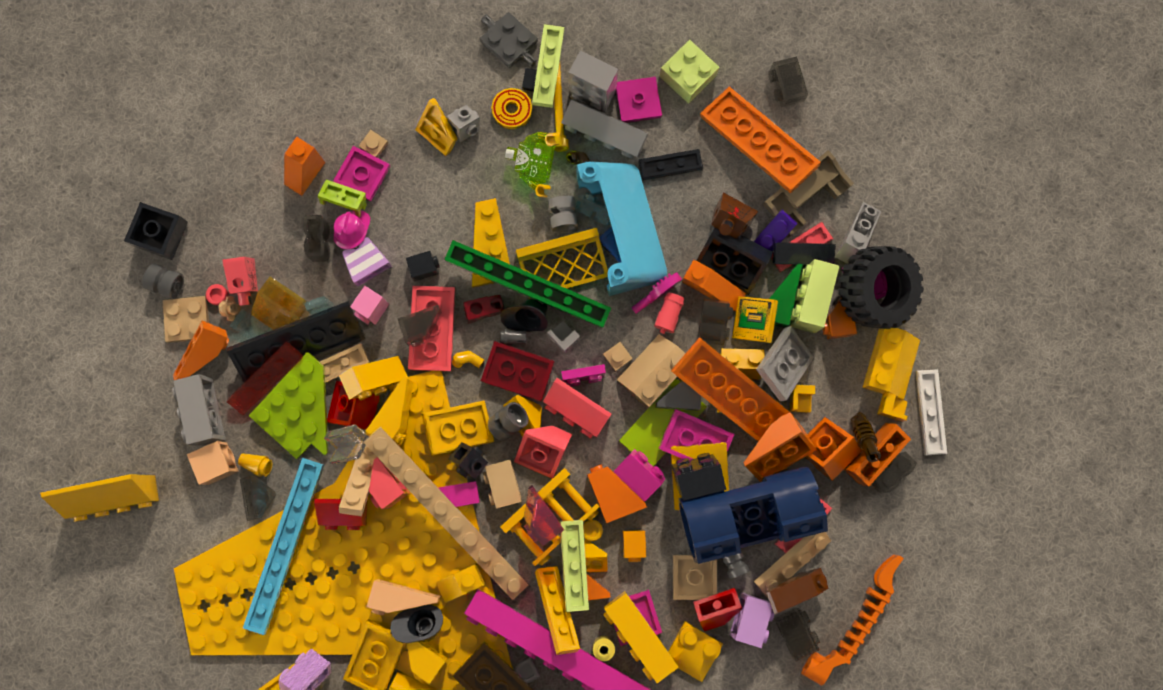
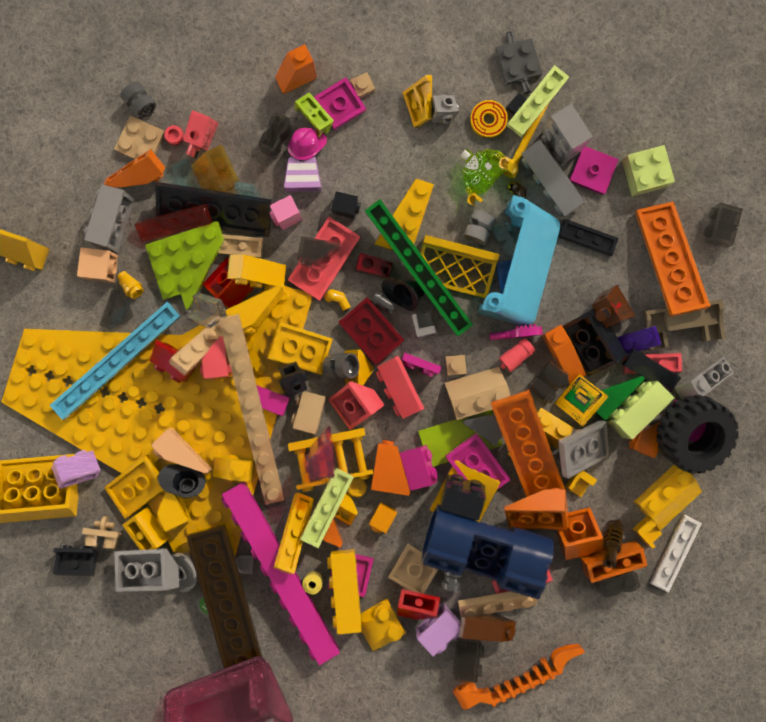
camera: 30 degrees right, 5 degrees up
(156, 231) = (154, 57): black brick -> none
(225, 305) = (173, 150): tan plate -> none

